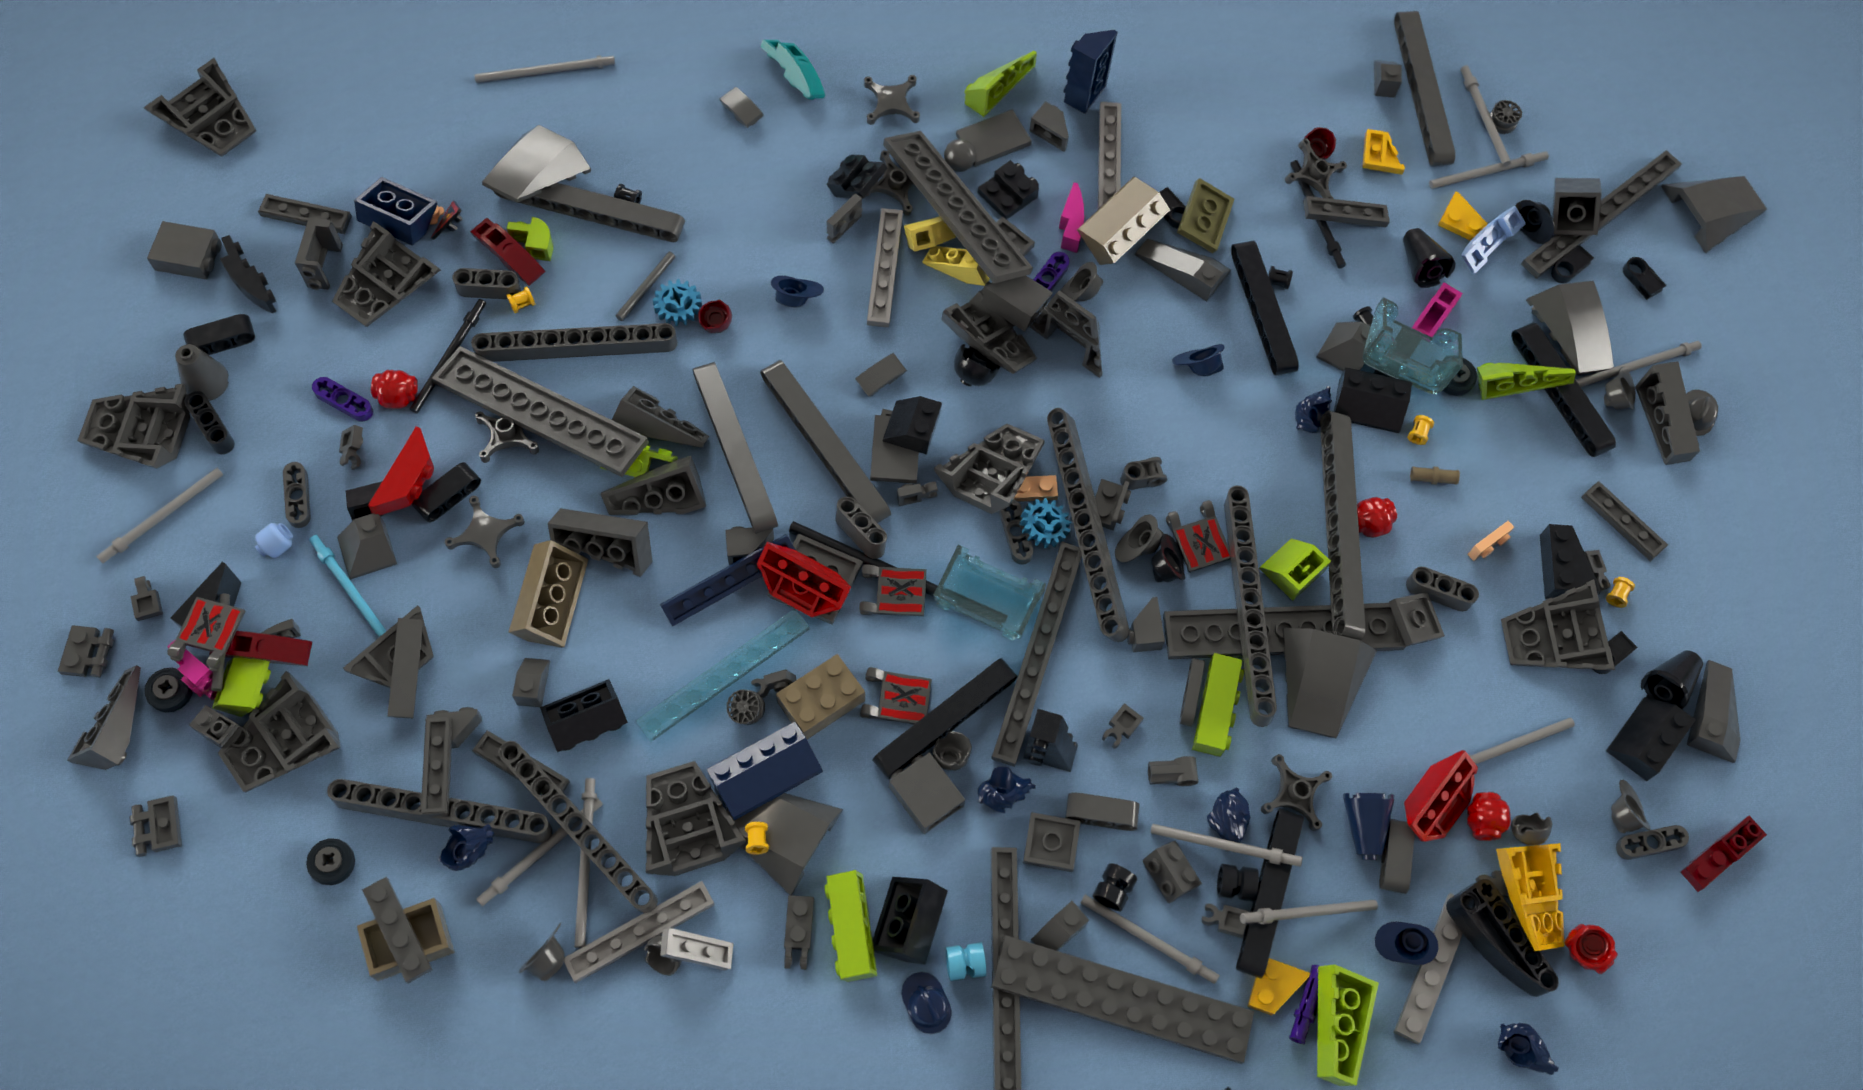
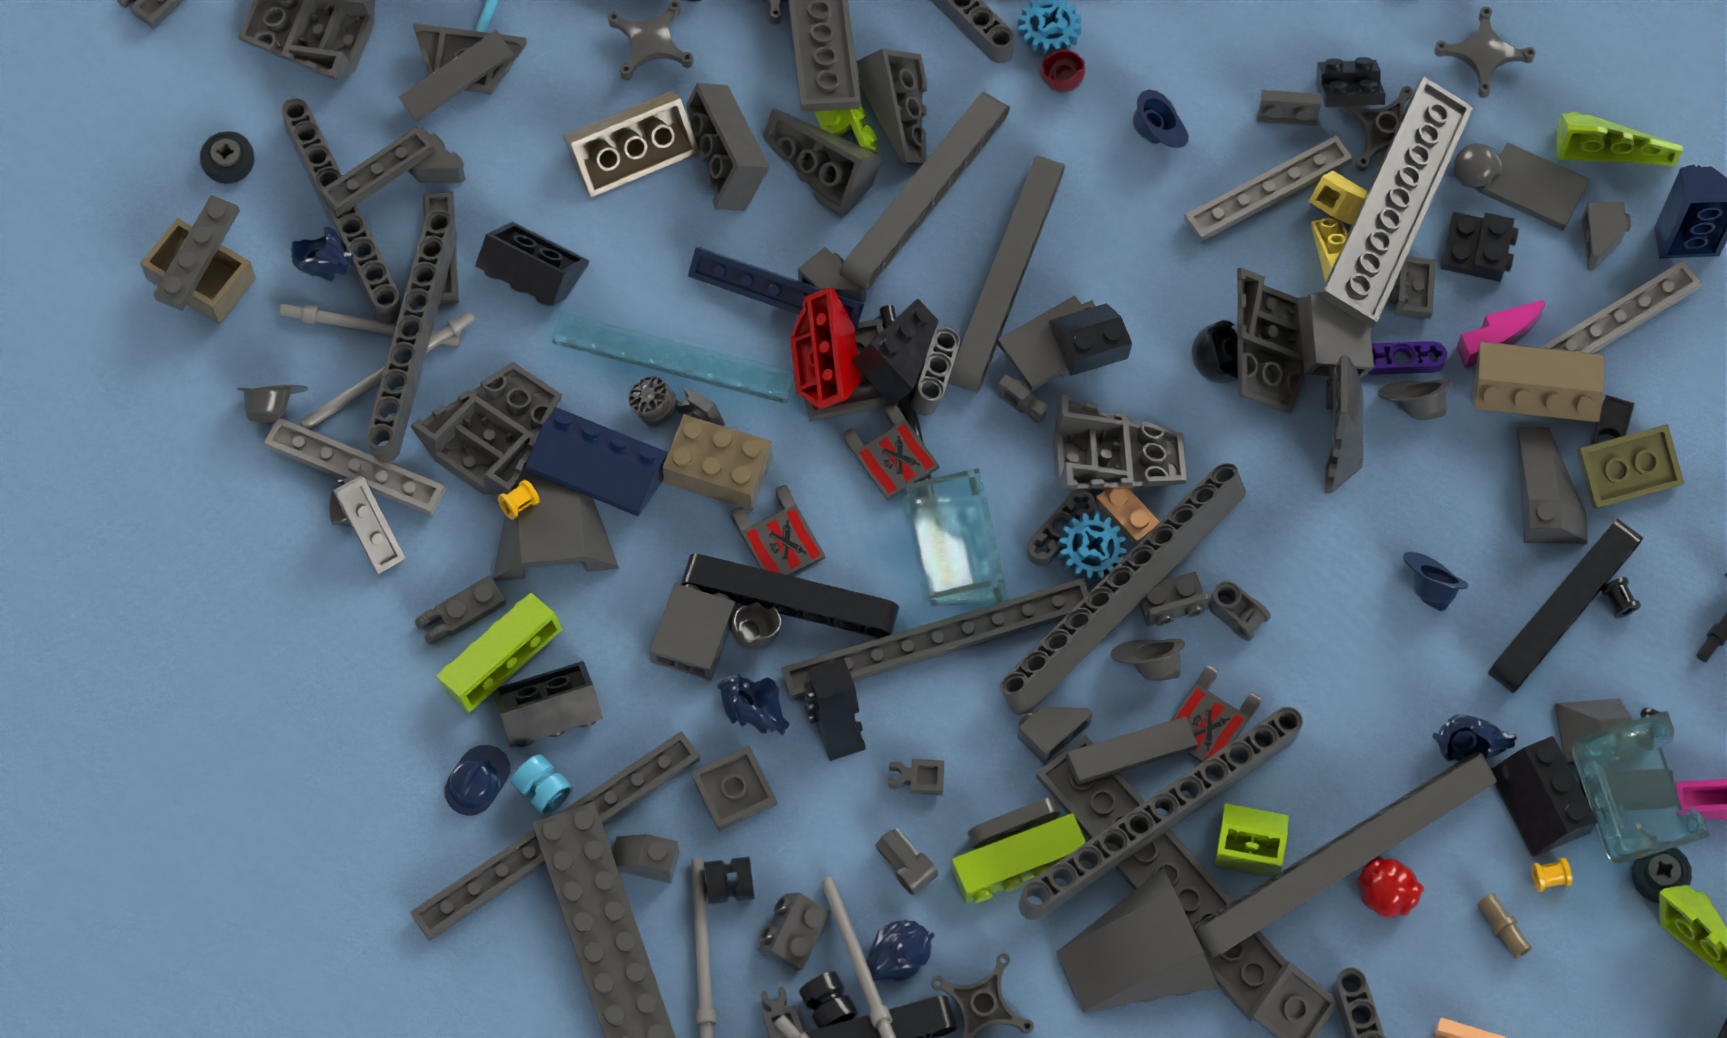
camera: 60 degrees right, 0 degrees up
(531, 682) = (529, 193): dark grey slope -> none
(835, 537) = (898, 352): none -> black wedge
(881, 374) = (1133, 271): dark grey slope -> none
(1103, 811) = (805, 817): dark grey beam -> none
(1168, 561) = (1152, 700): black piece -> none
(1194, 593) = (1131, 750): none -> dark grey tile

